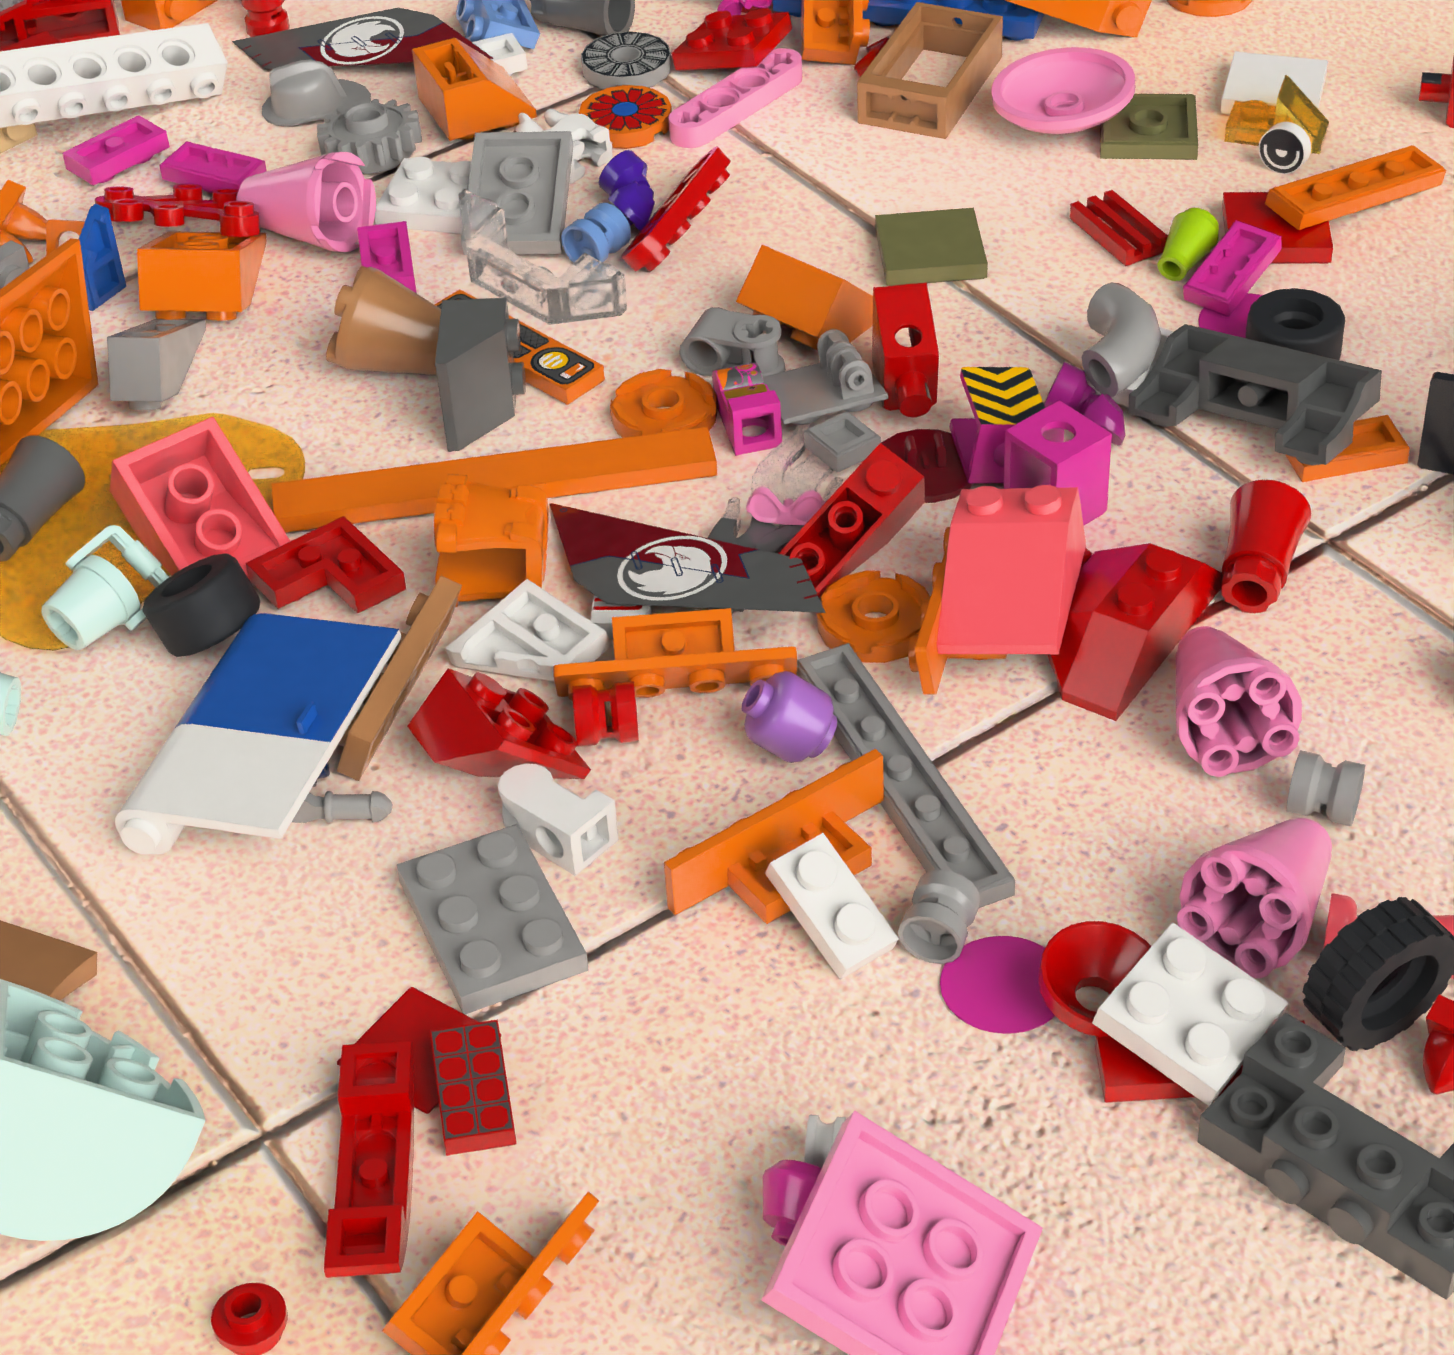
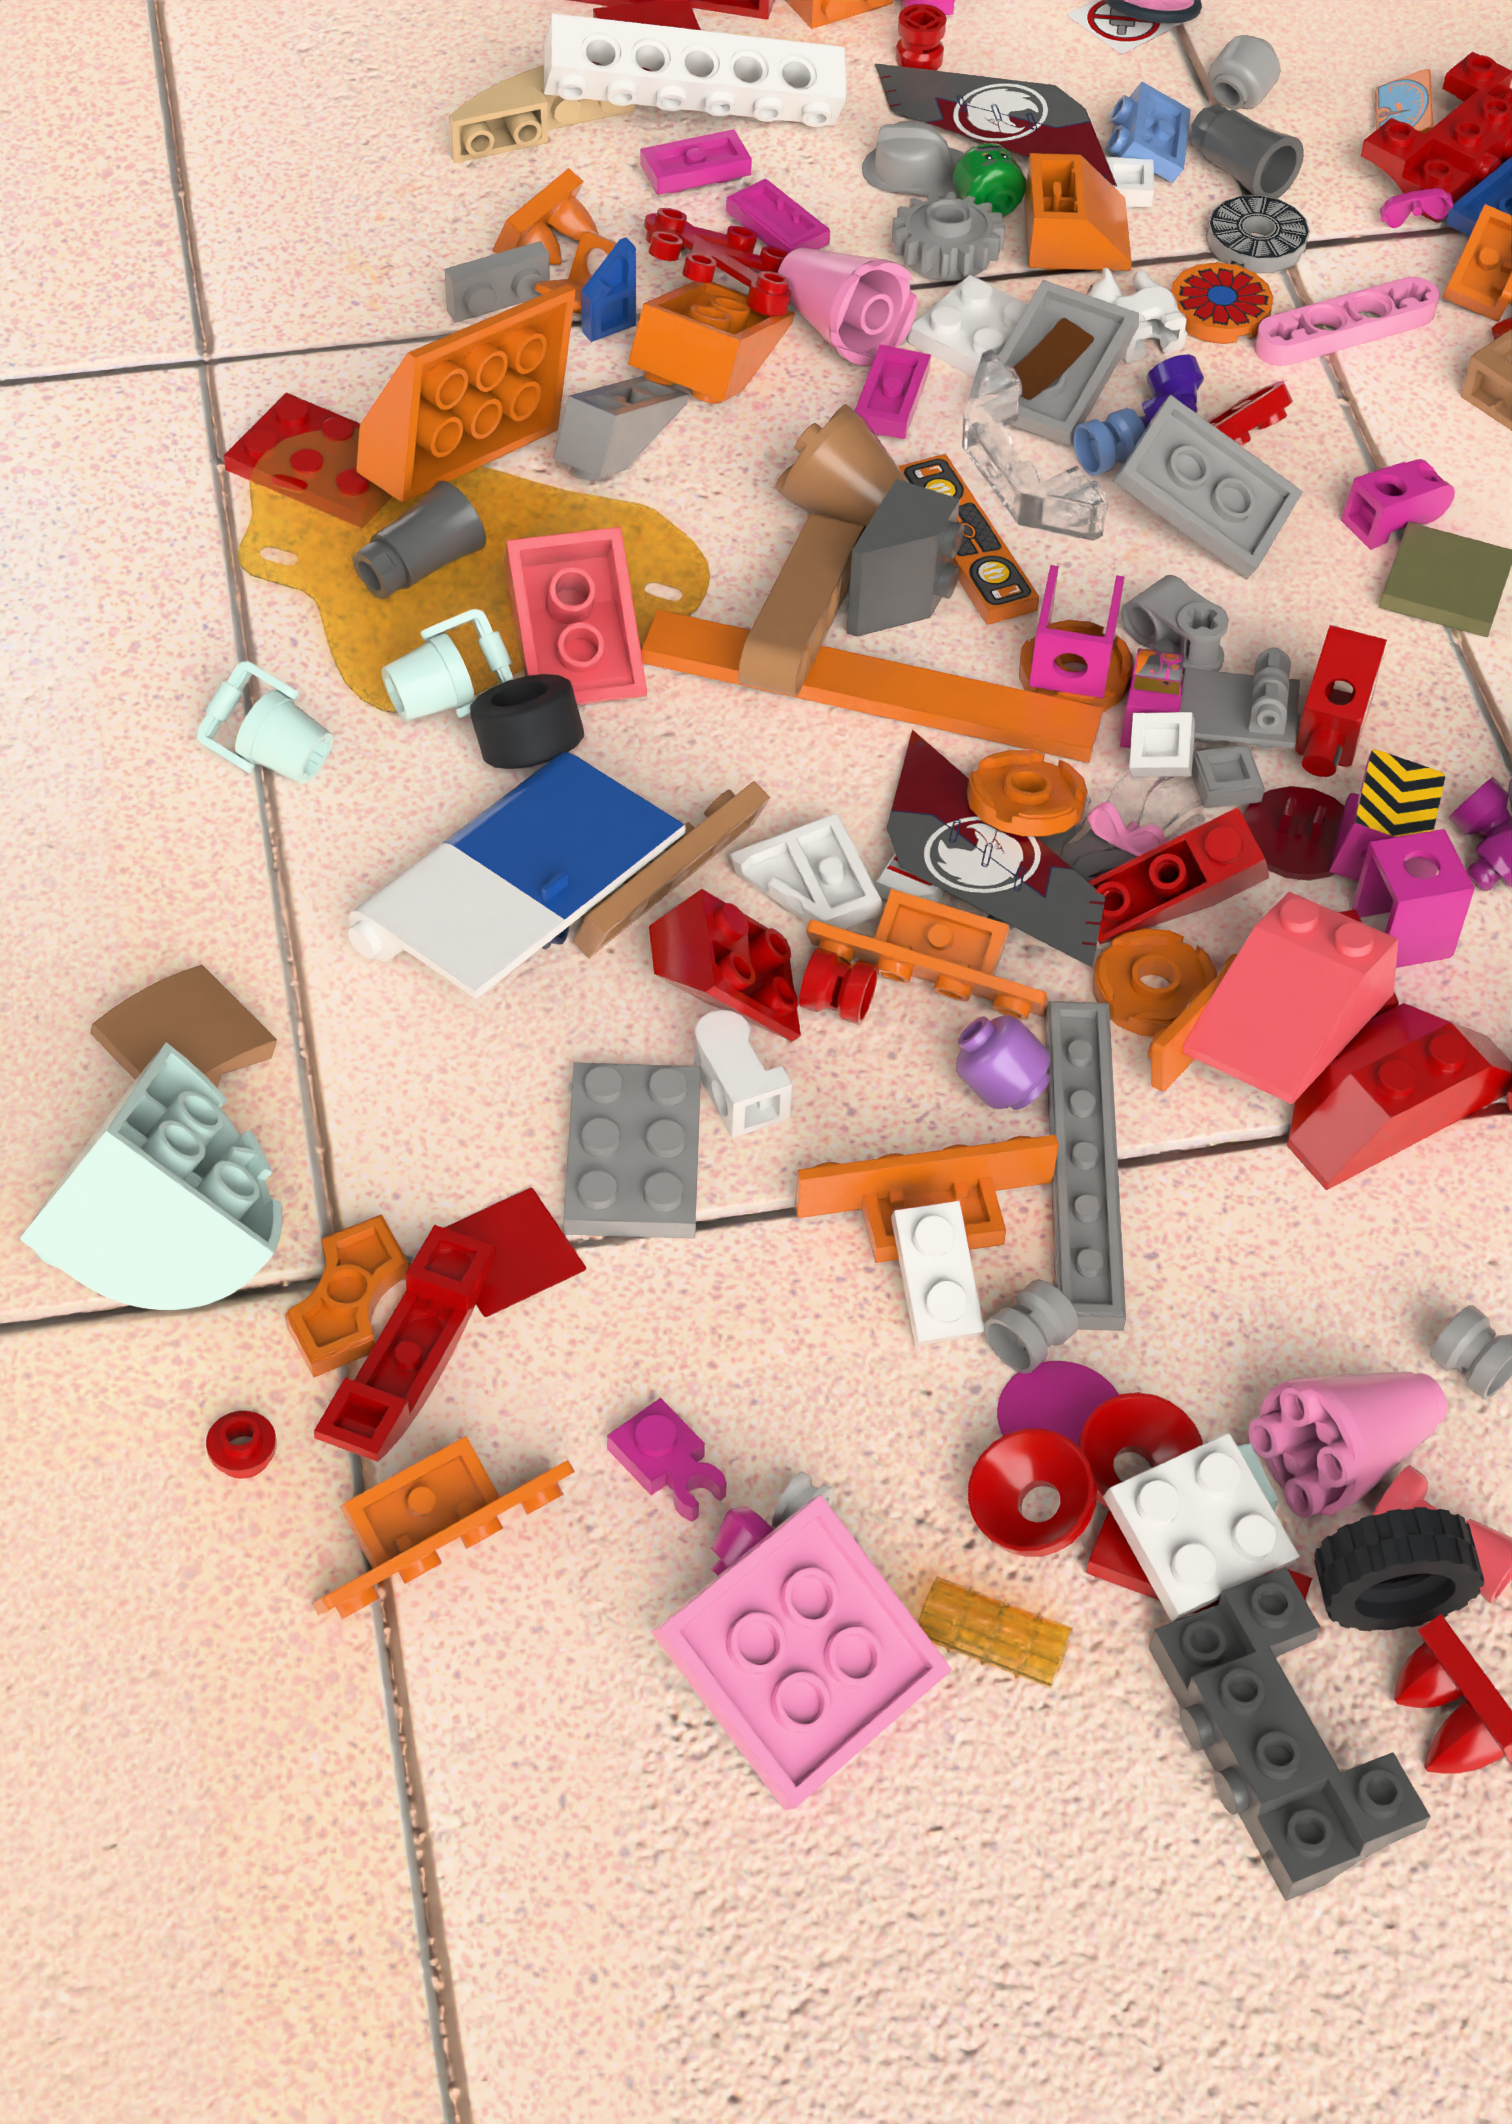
camera: 20 degrees right, 10 degrees up
(284, 1171) = (336, 1317): none -> orange tile
(332, 557) = (671, 710): red plate -> none
(344, 806) = (548, 977): light grey piece -> none
(383, 80) = (991, 177): none -> green head
(403, 434) = (800, 606): none -> medium nougat beam
(472, 1087) = (531, 1310): red tile -> none
(490, 537) = (822, 756): orange piece -> none
(515, 185) = (1051, 357): none -> reddish brown sticker
(639, 384) = (1093, 649): none -> dark pink piece
(667, 1156) = (663, 1452): none -> dark pink plate
(683, 511) = (999, 797): none -> orange tile
(695, 232) = (1208, 486): none -> light grey plate
(732, 40) = (1377, 250): red plate -> none
(777, 432) = (1162, 744): none -> white plate
(805, 298) = (1276, 598): orange slope -> none
(852, 203) = (1392, 498): none -> dark pink leg
(1022, 1016) = (1013, 1469): none -> red piece
(1064, 1179) = (995, 1632): none -> clear yellow axle
(1232, 704) = (1433, 1224): bright pink cone -> none

